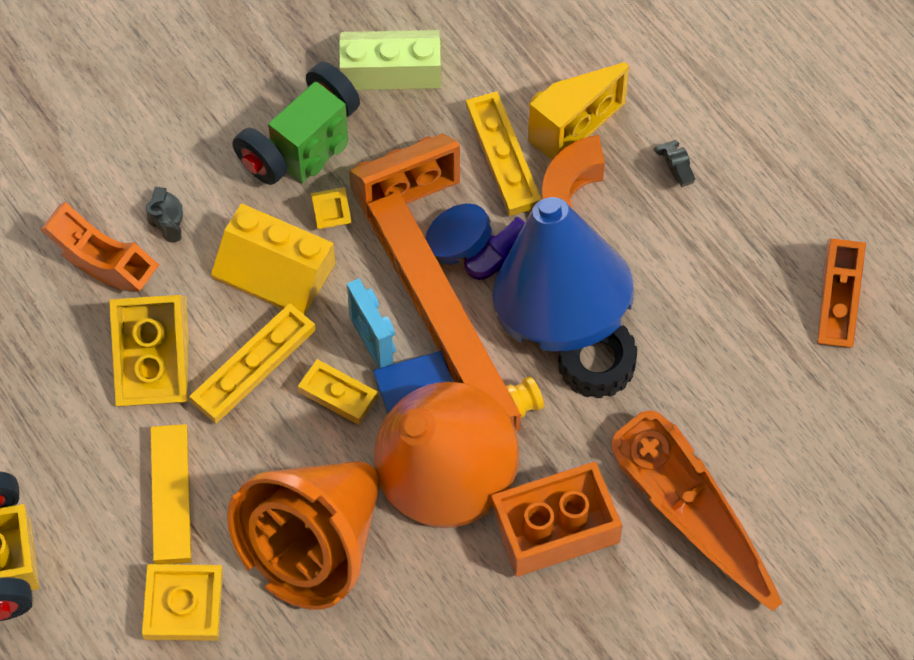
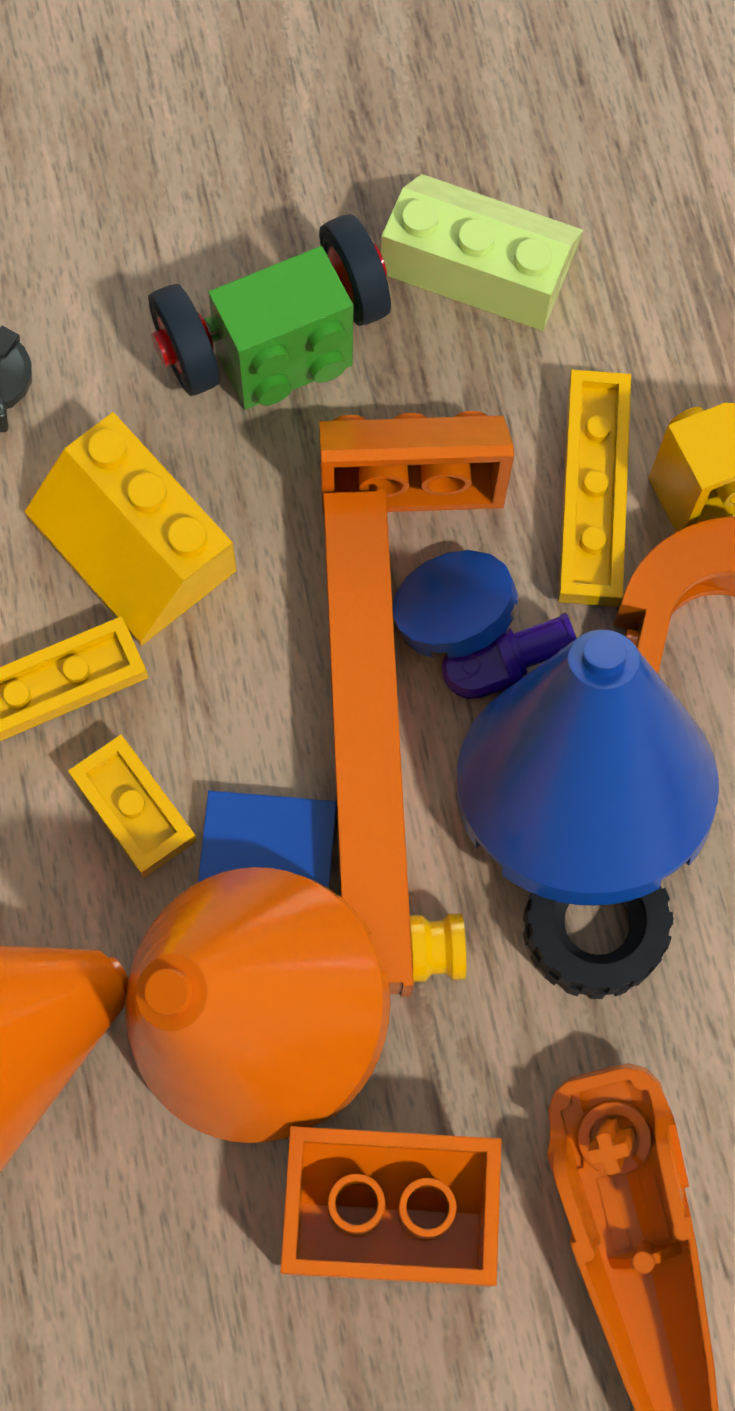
camera: 20 degrees right, 10 degrees up
(331, 208) = (265, 473): yellow plate -> none
(372, 328) = (232, 697): medium azure plate -> none

